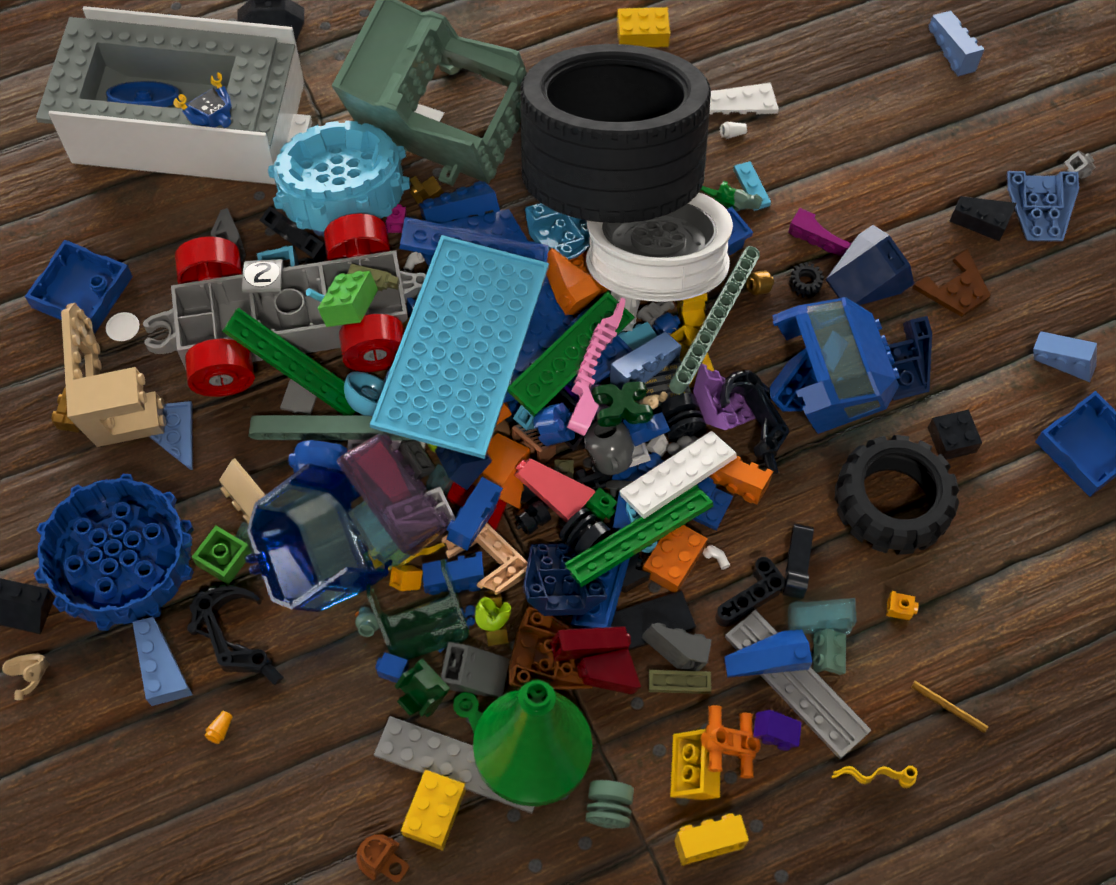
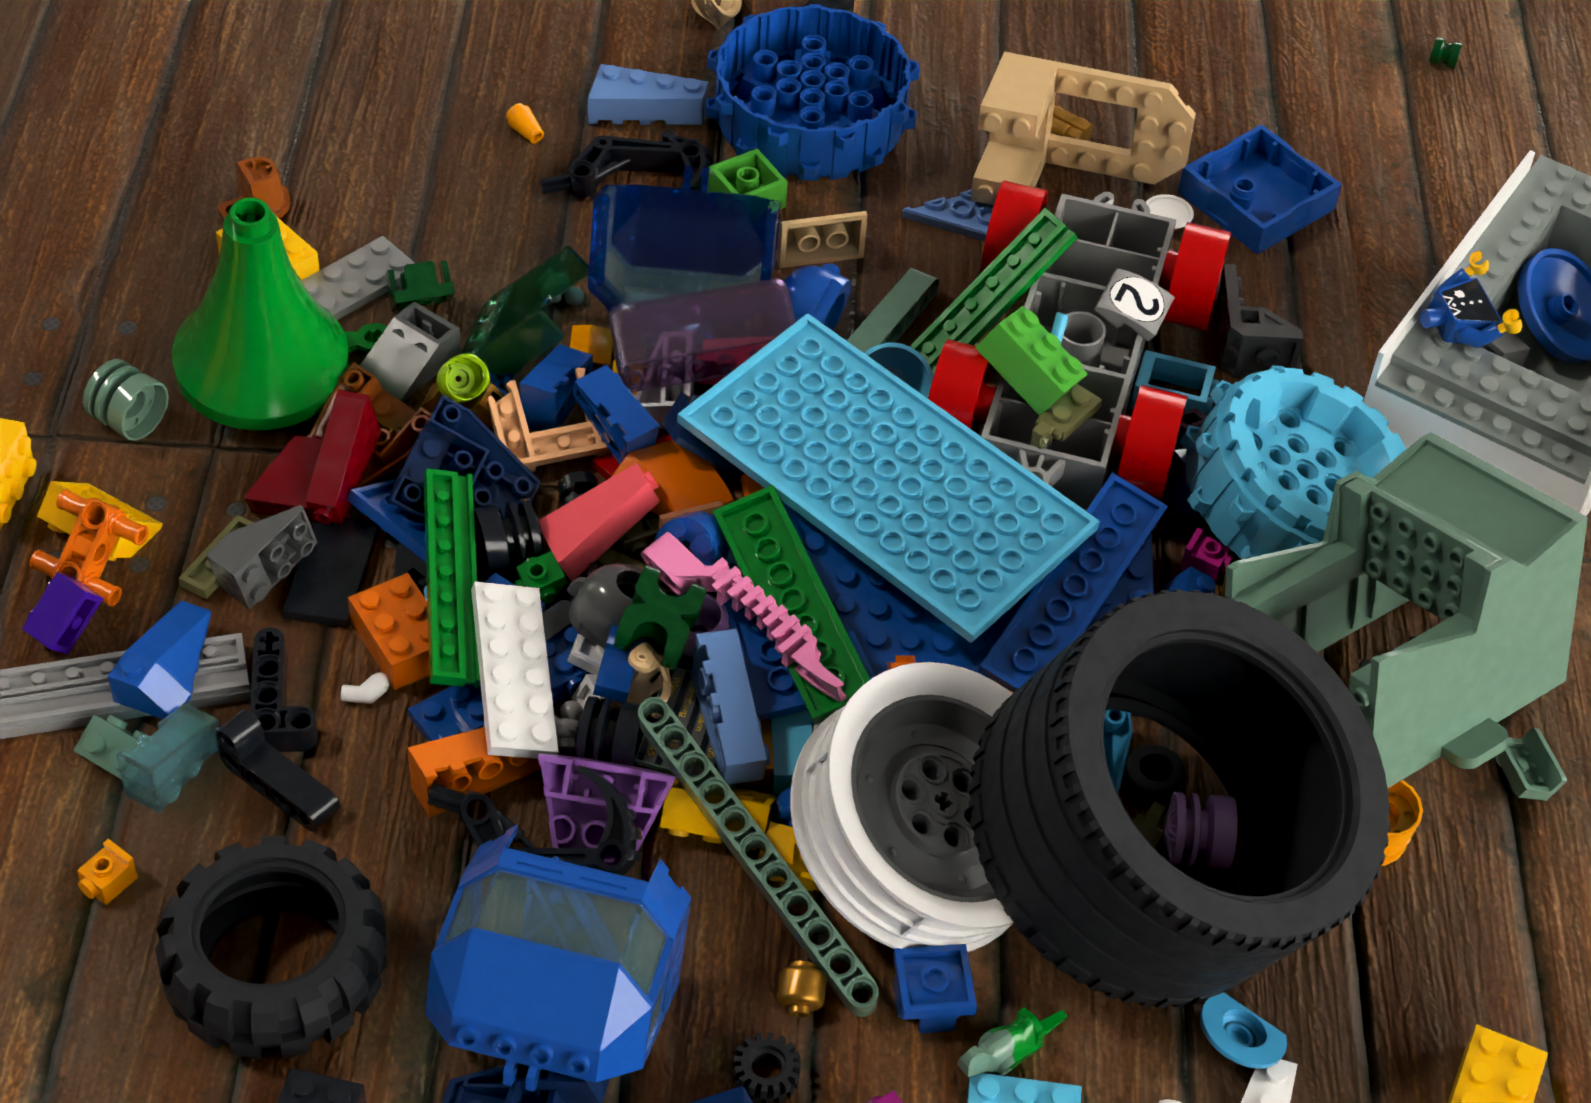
camera: 115 degrees right, 15 degrees down
(391, 667) = (475, 286): blue brick -> none

